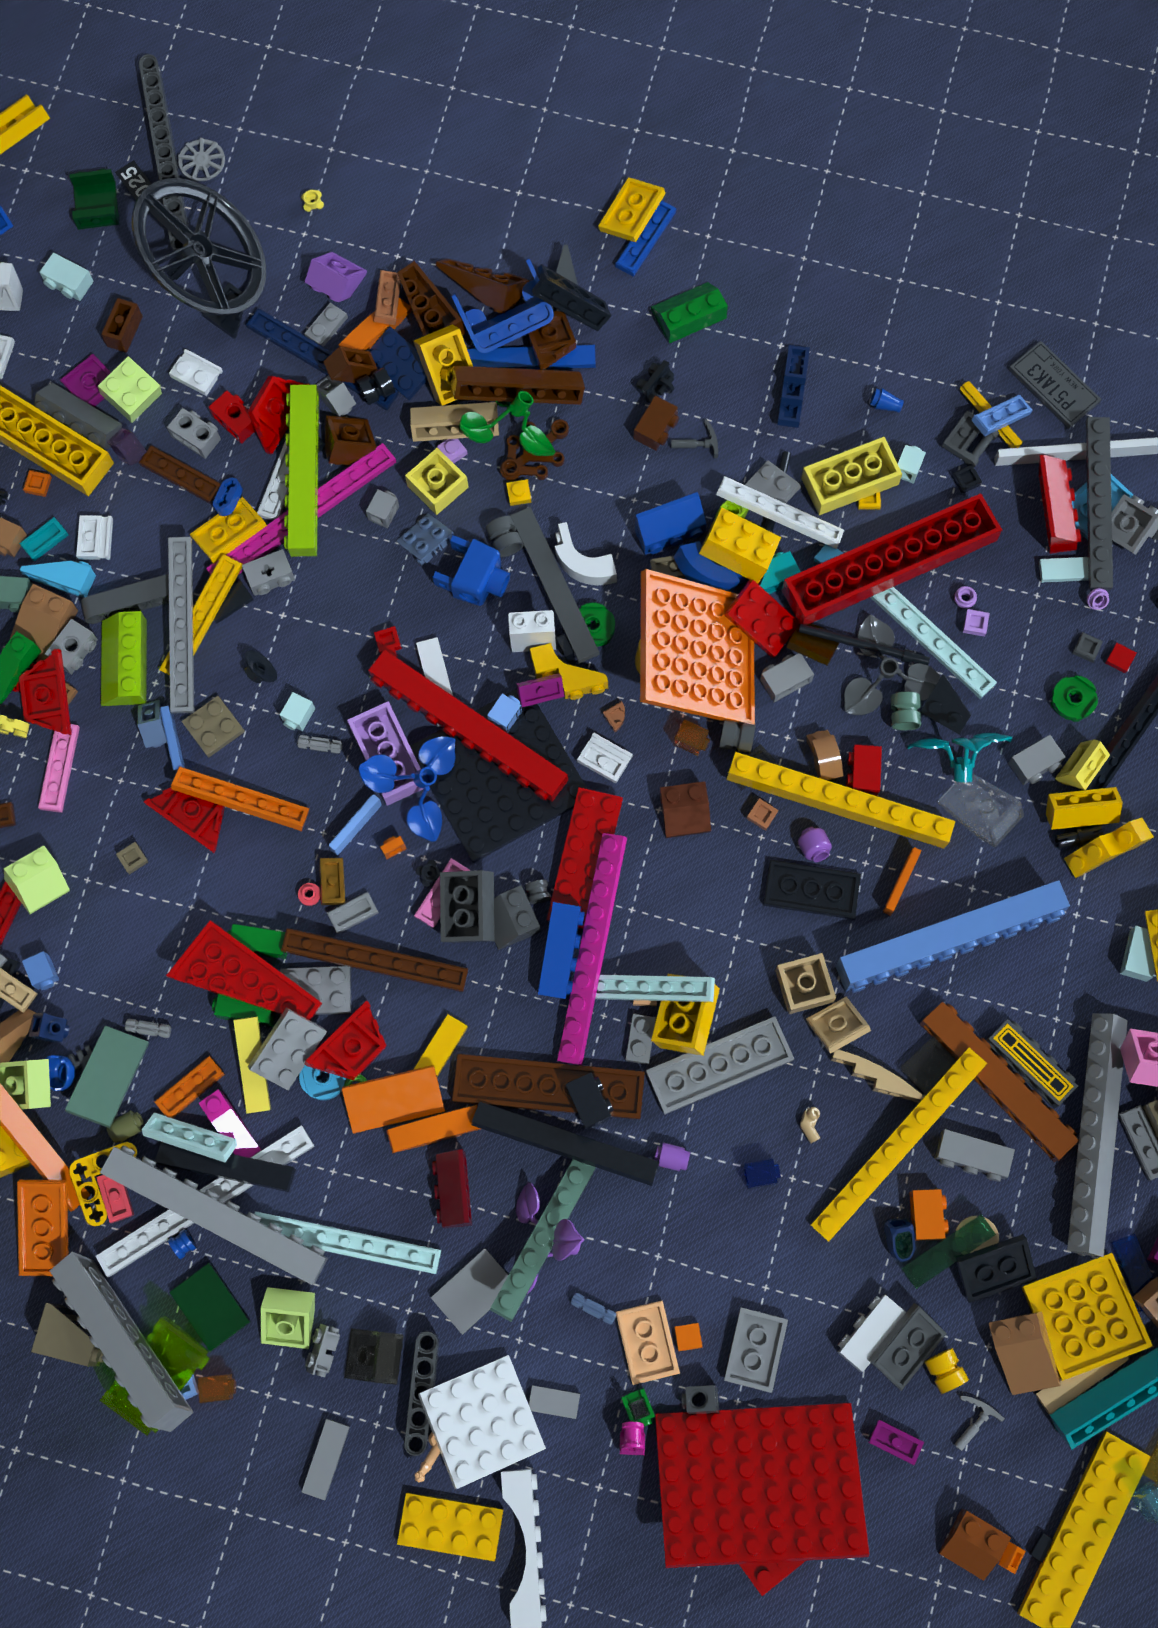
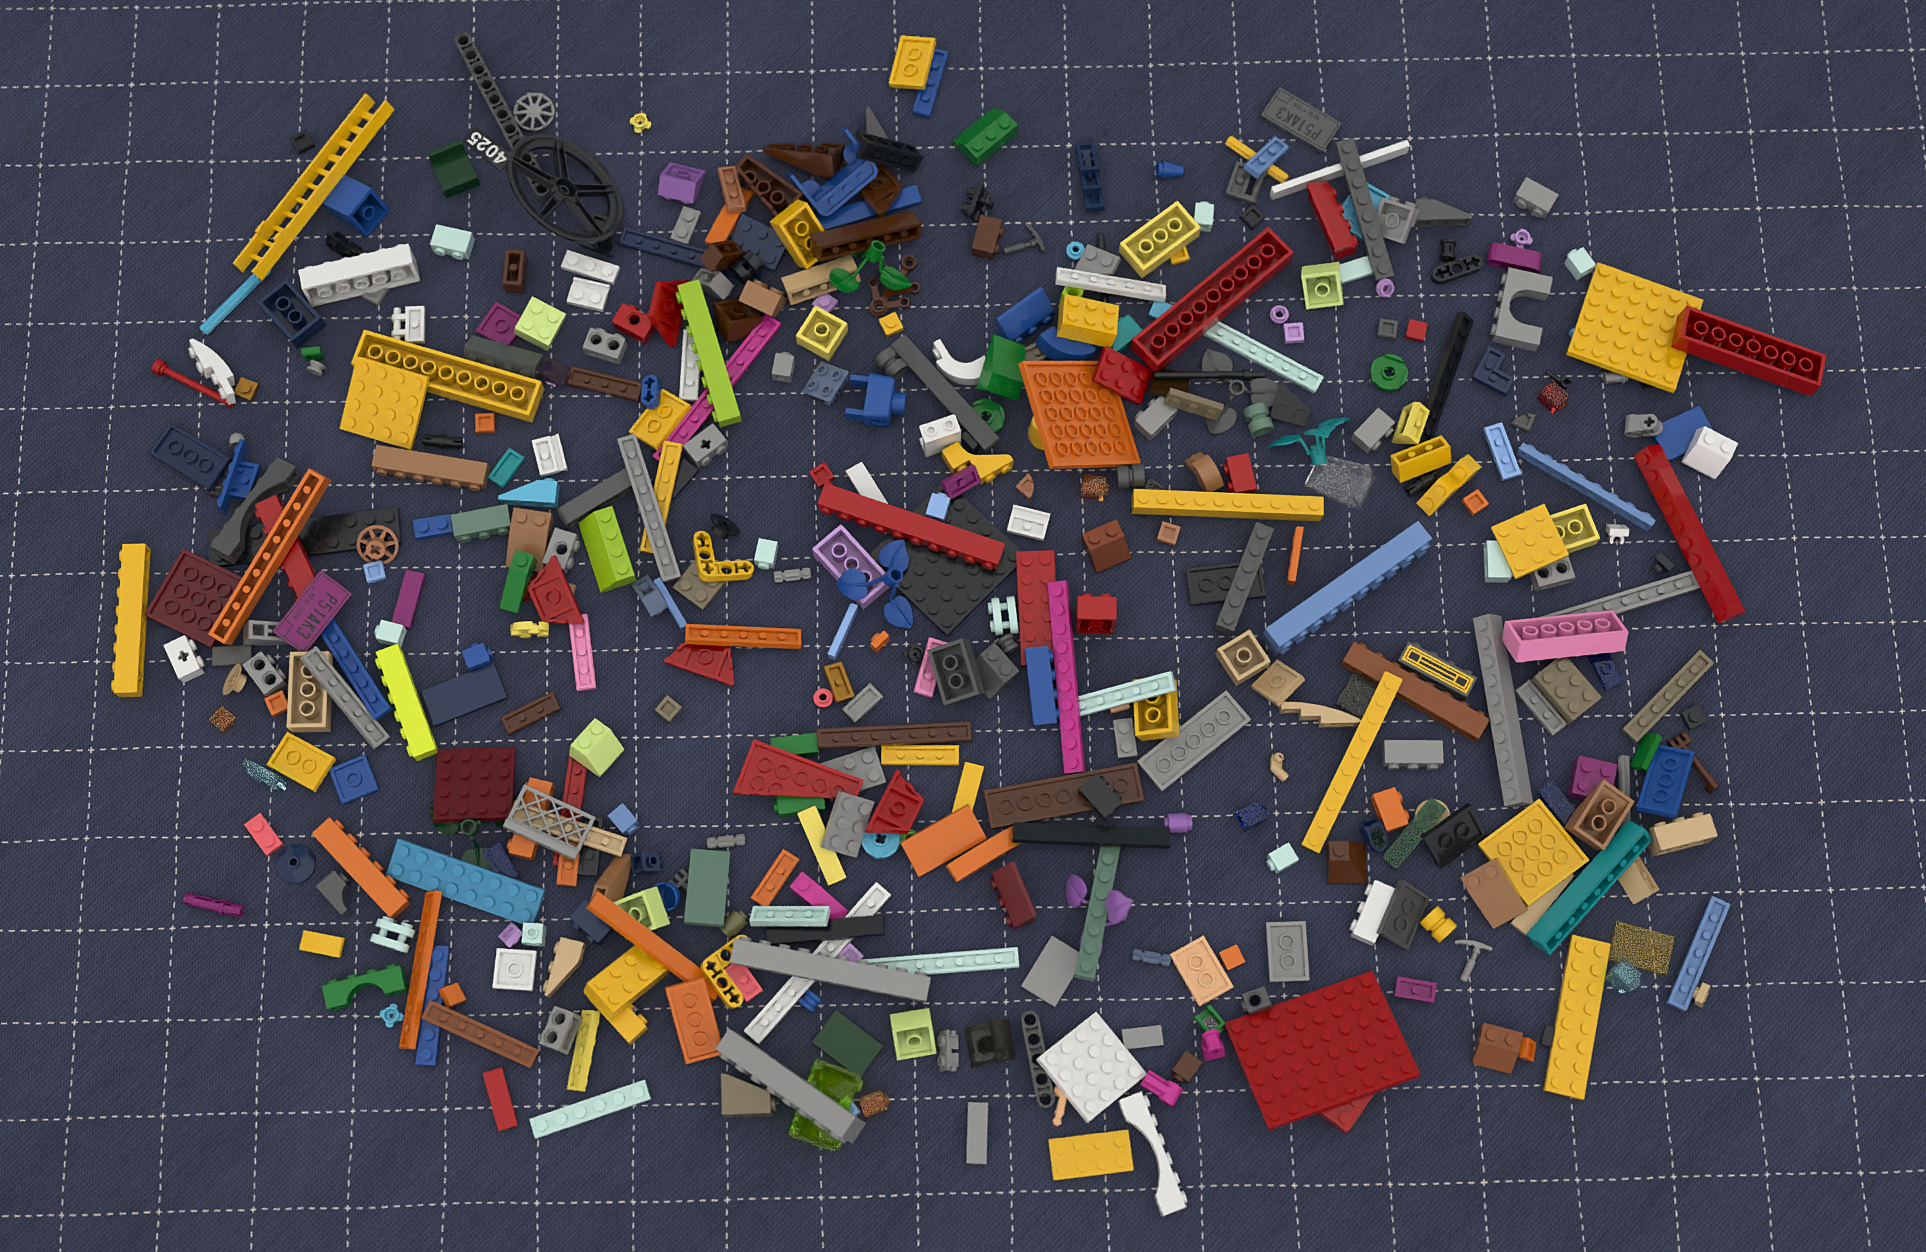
camera: 20 degrees left, 0 degrees up
(207, 343) = (590, 267): none -> white plate
(234, 712) = (714, 568): none -> yellow beam
(246, 1201) = (851, 952): none -> lavender plate
(383, 424) = (759, 297): none -> medium nougat slope
(399, 991) = (920, 755): none -> yellow tile
(536, 846) = (995, 608): none -> light aqua brick
(561, 1475) = (1165, 1090): none -> dark pink piece
(593, 1455) = (1186, 1067): none -> reddish brown brick
(621, 575) = (1001, 369): none -> green slope
(646, 885) = (1095, 614): none -> red brick
(747, 468) = (1075, 255): none -> medium azure plate
(781, 1235) = (1281, 858): none -> light aqua brick
(814, 844) = (1217, 546): medium lavender head -> none
(834, 672) = (1193, 404): none -> dark tan plate
(834, 891) = (1243, 579): none -> dark grey arch
(857, 1263) = (1346, 862): none -> reddish brown slope
(1025, 576) = (1322, 285): none -> yellowish green slope
(1134, 876) = (1475, 502): none -> orange plate

